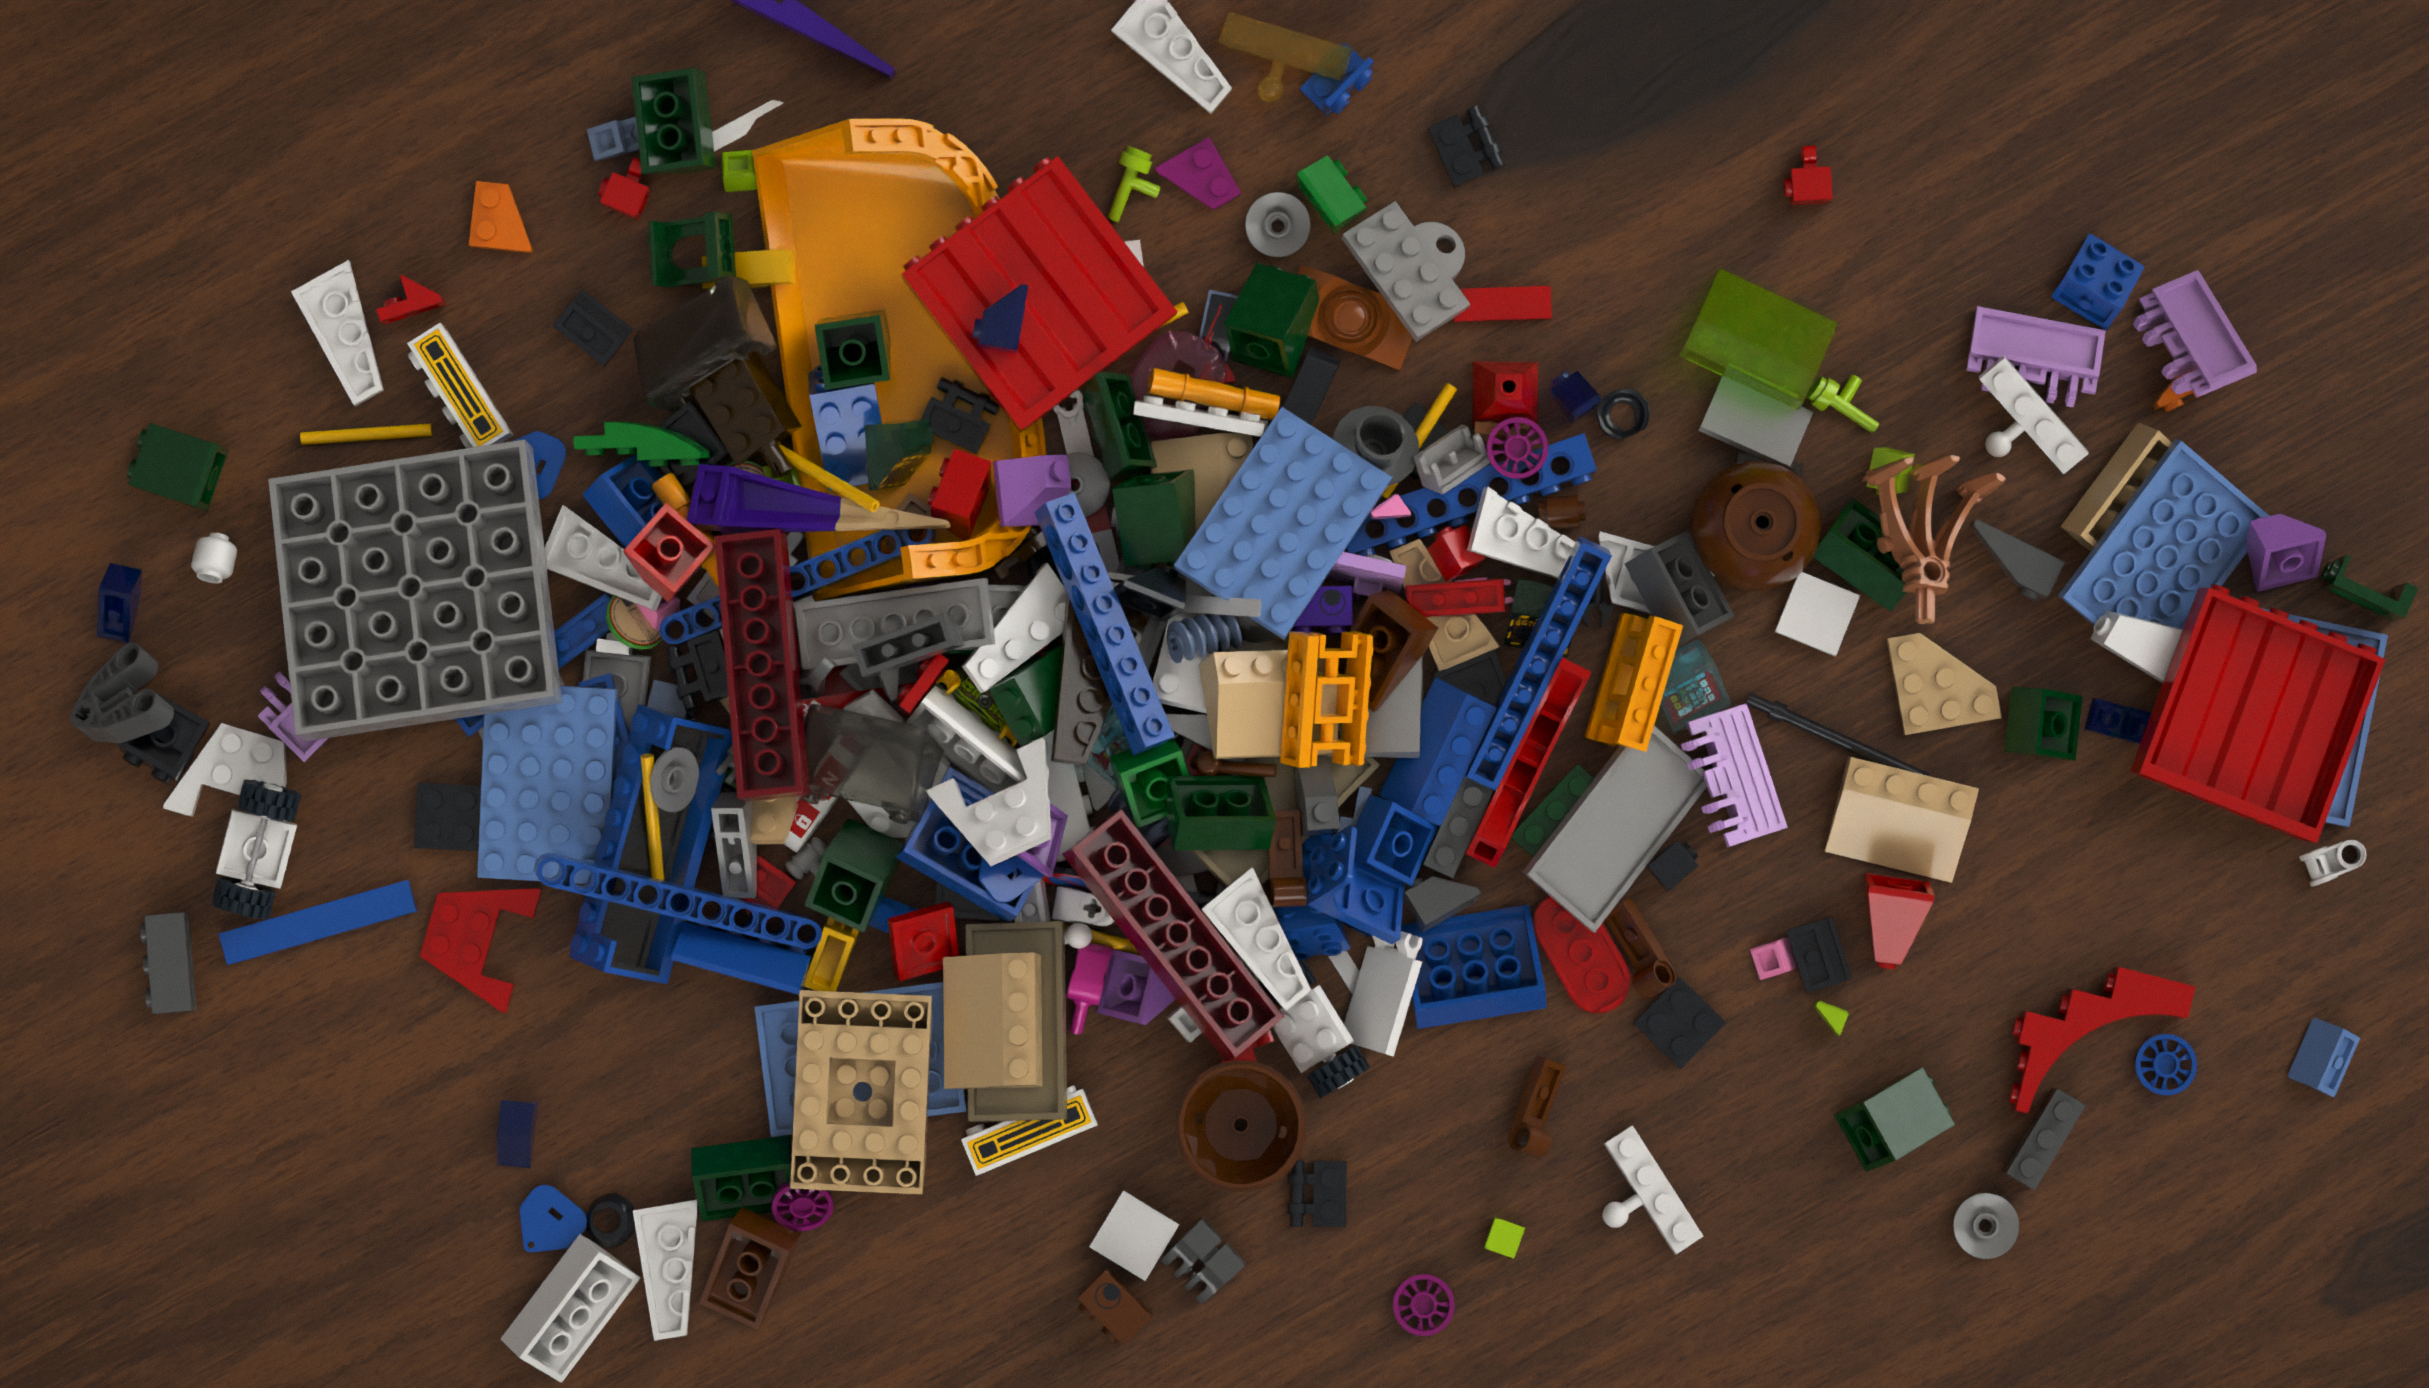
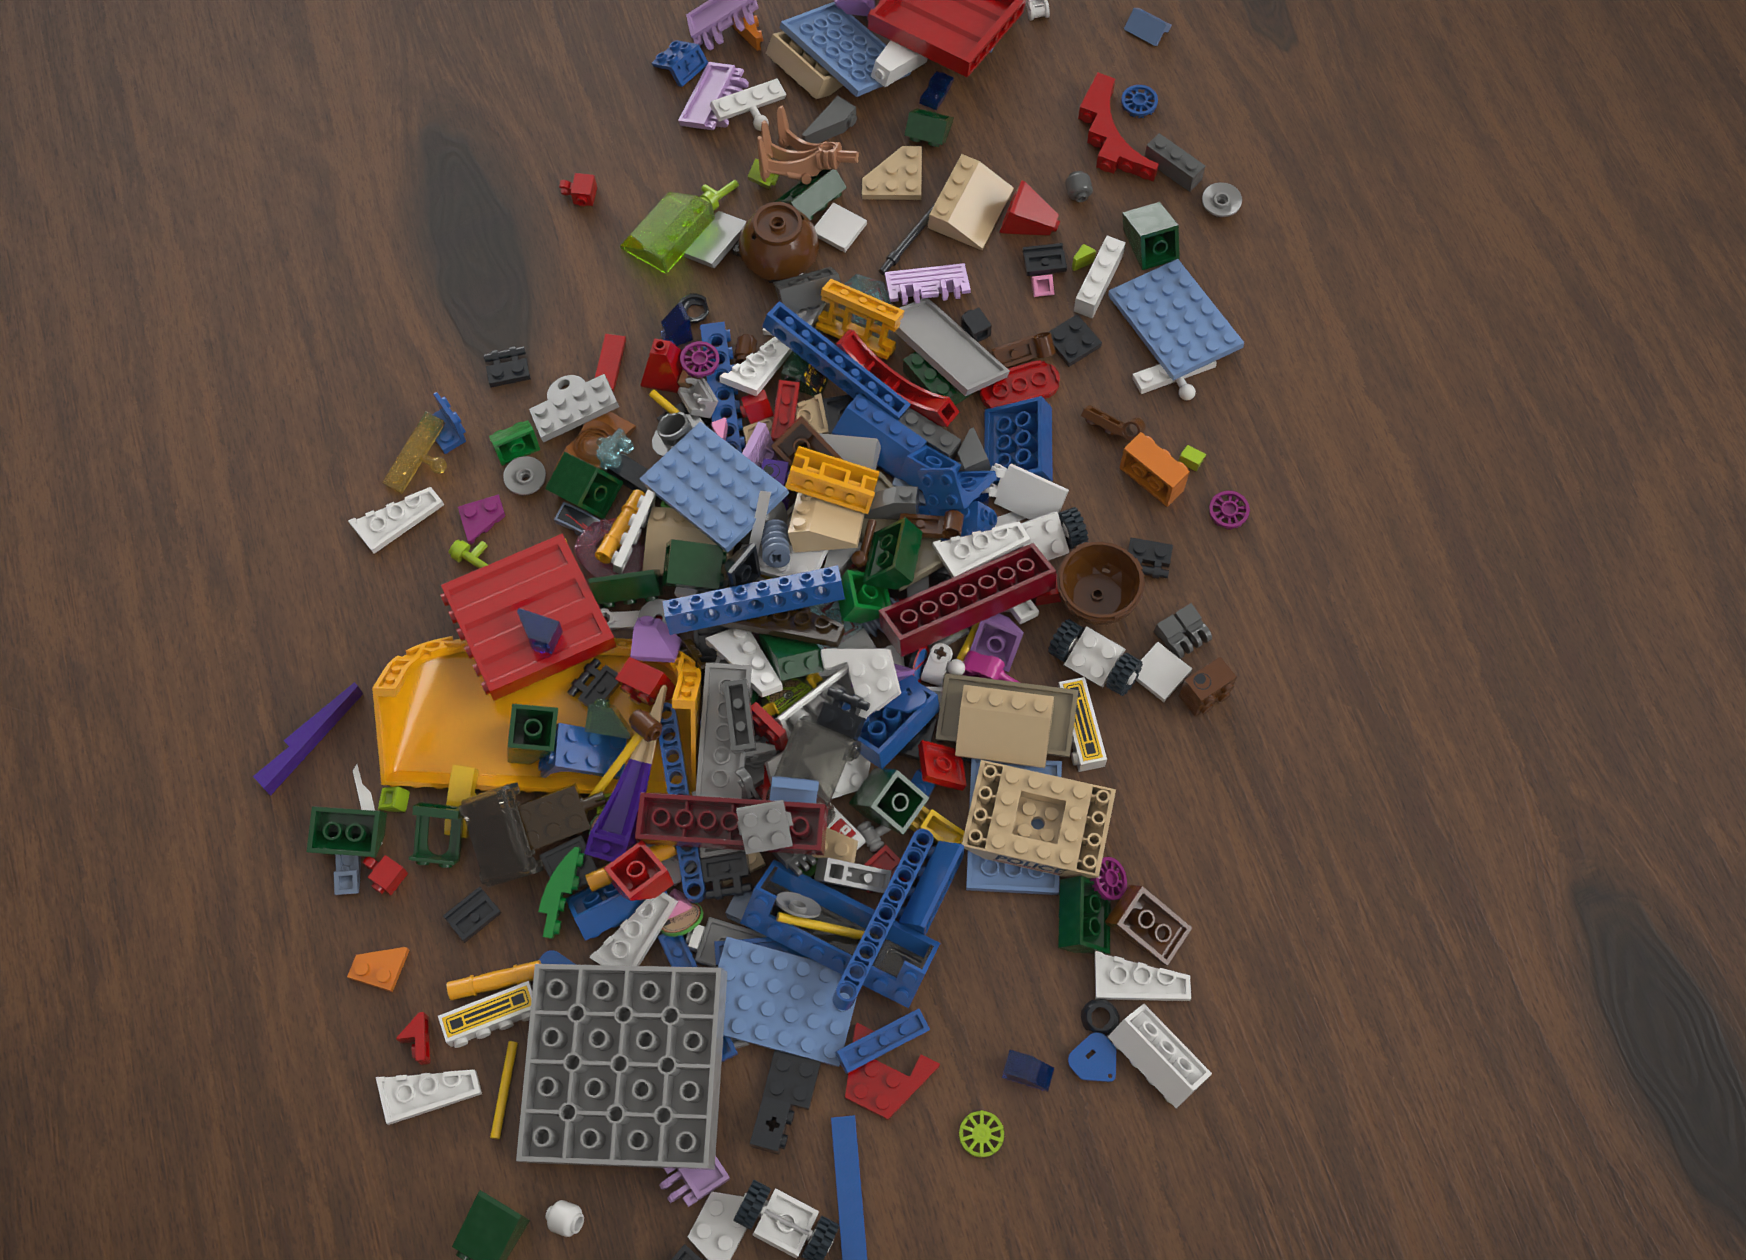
camera: 80 degrees left, 20 degrees down
(364, 794) = (772, 1110): none -> black brick
(424, 1084) = (981, 1134): none -> lime wheel
(507, 383) = (491, 980): none -> light orange piece
(519, 930) = (882, 1041): none -> blue plate
(750, 716) = (765, 826): none -> light grey piece
(823, 742) = (793, 789): none -> medium blue panel
(882, 511) = (645, 725): none -> reddish brown brick
(942, 785) = (840, 720): none -> black plate
(1129, 1135) = (1095, 657): none -> plate
(1325, 345) = (611, 447): none -> clear light blue hips
(1460, 1182) = (1154, 469): none -> orange brick
(1743, 1179) = (1175, 319): none -> medium blue plate
(1798, 1047) = (1099, 277): none -> white brick
(1966, 989) = (1078, 186): none -> dark grey head

